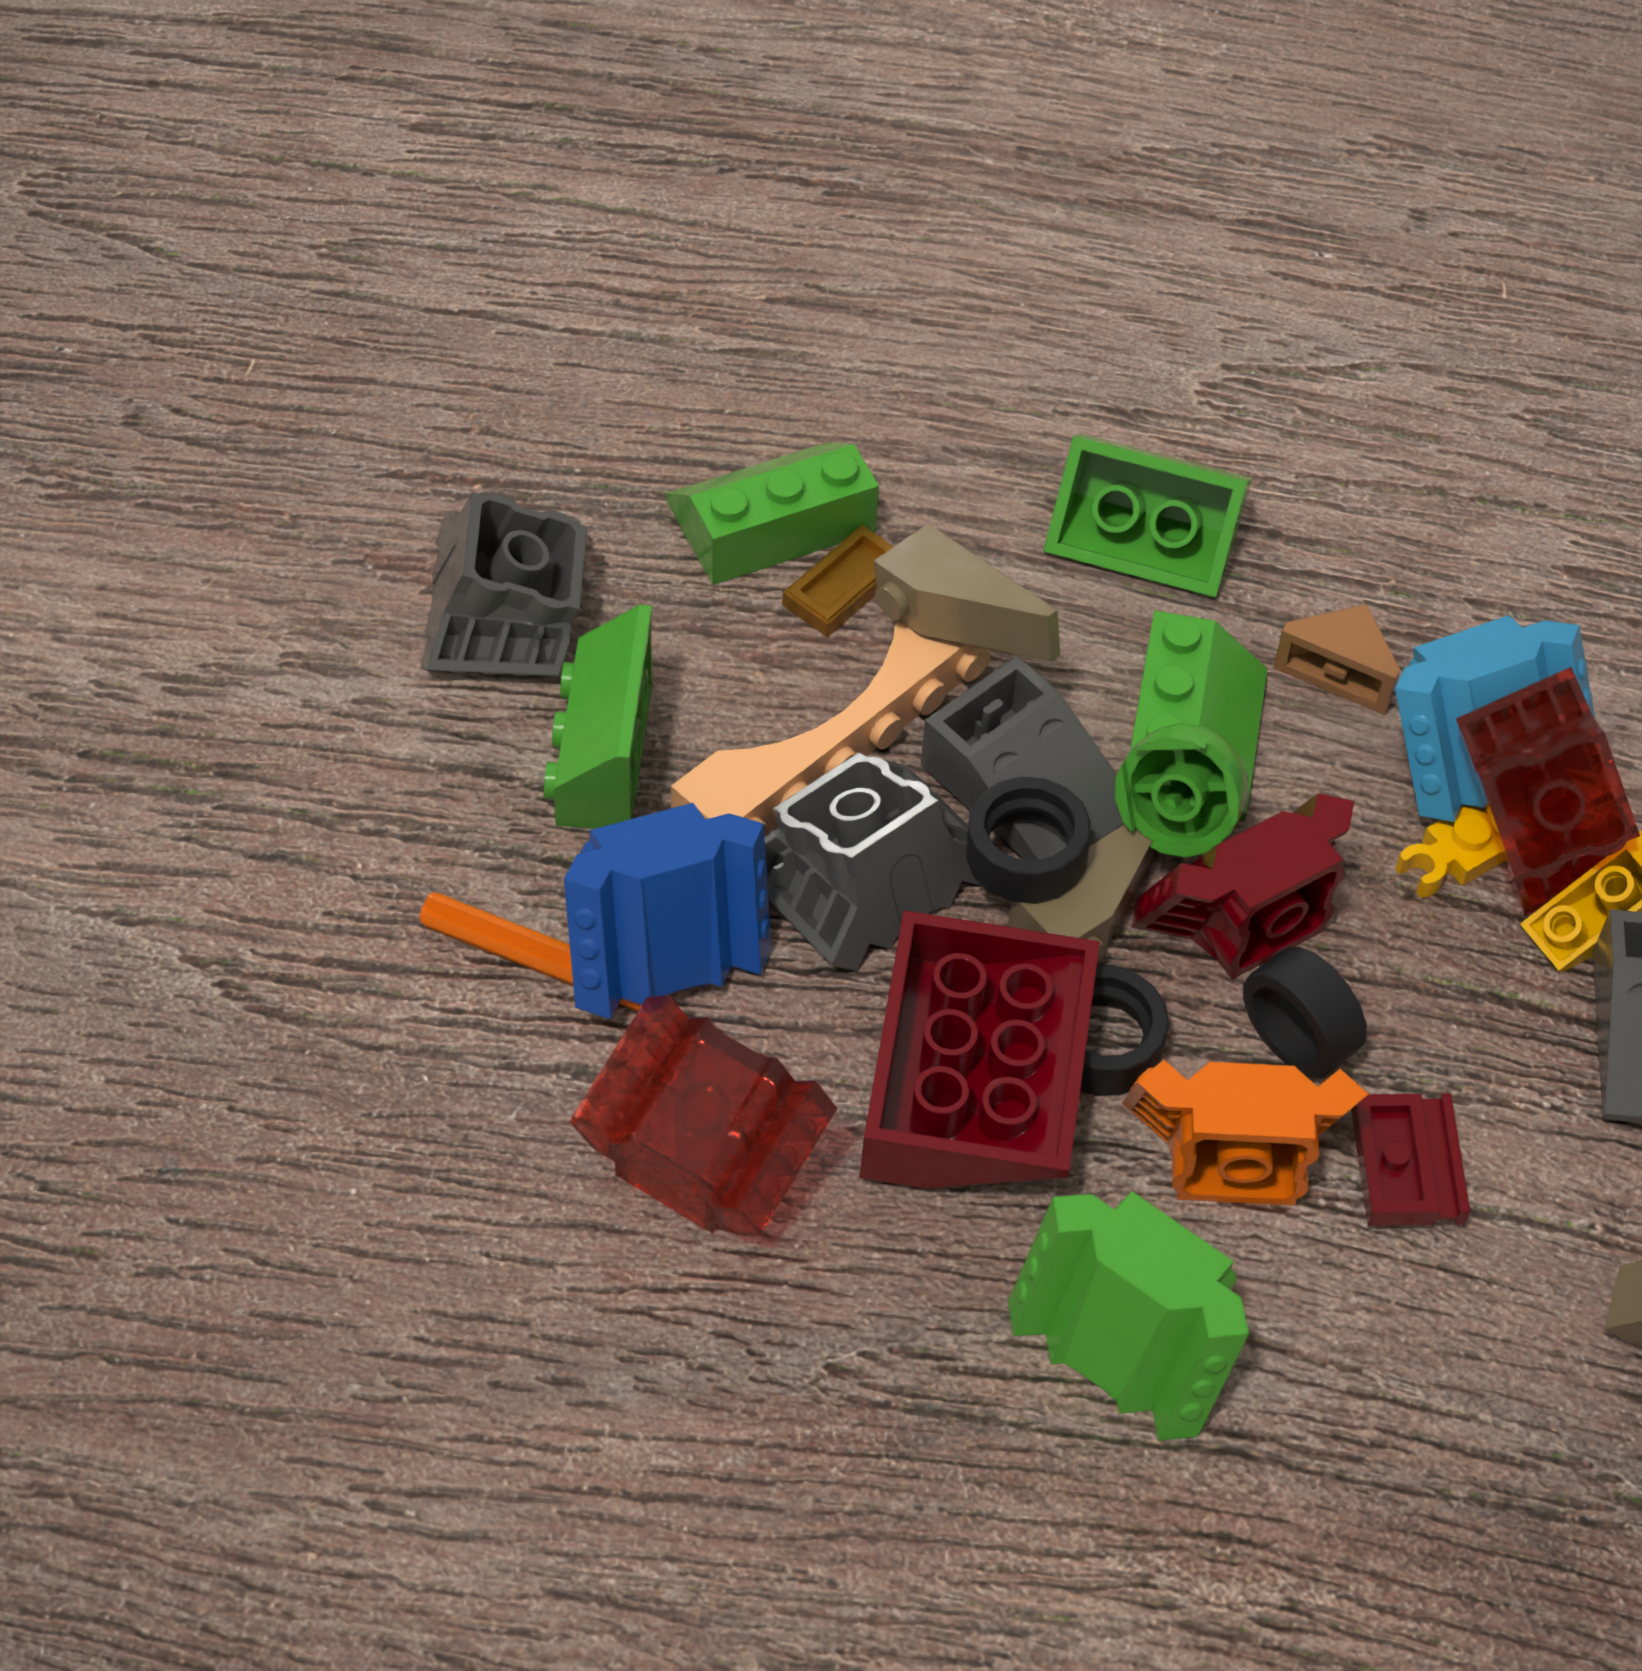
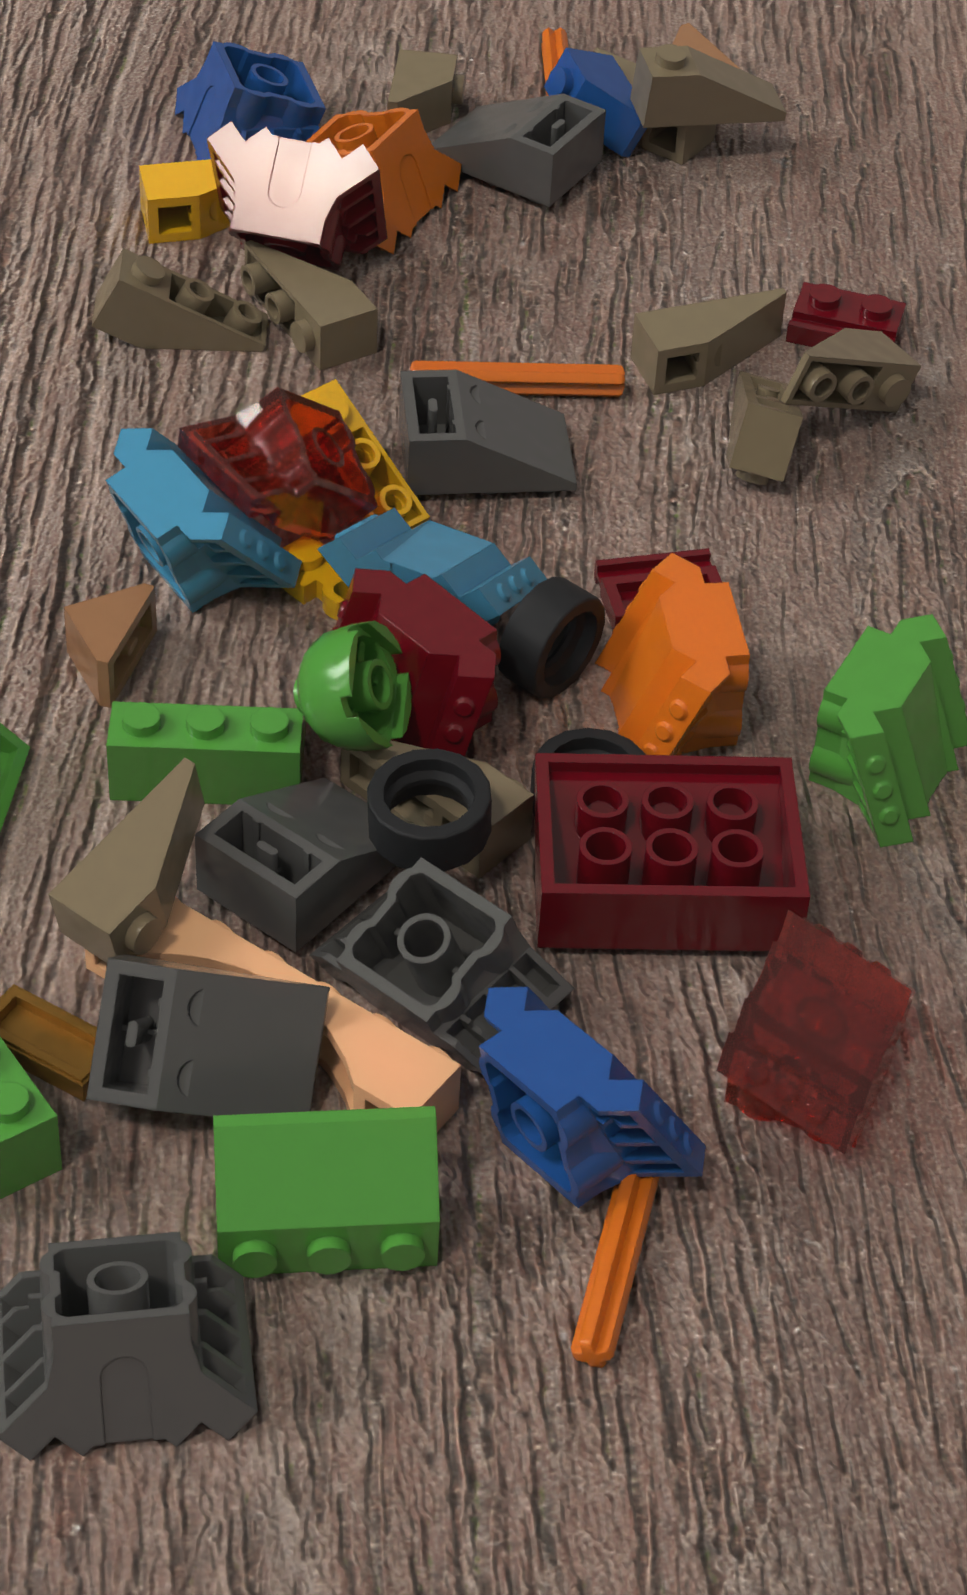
camera: 100 degrees left, 10 degrees down
(787, 645) = (205, 1039): none -> dark grey slope
(1407, 913) = (455, 560): none -> dark azure slope

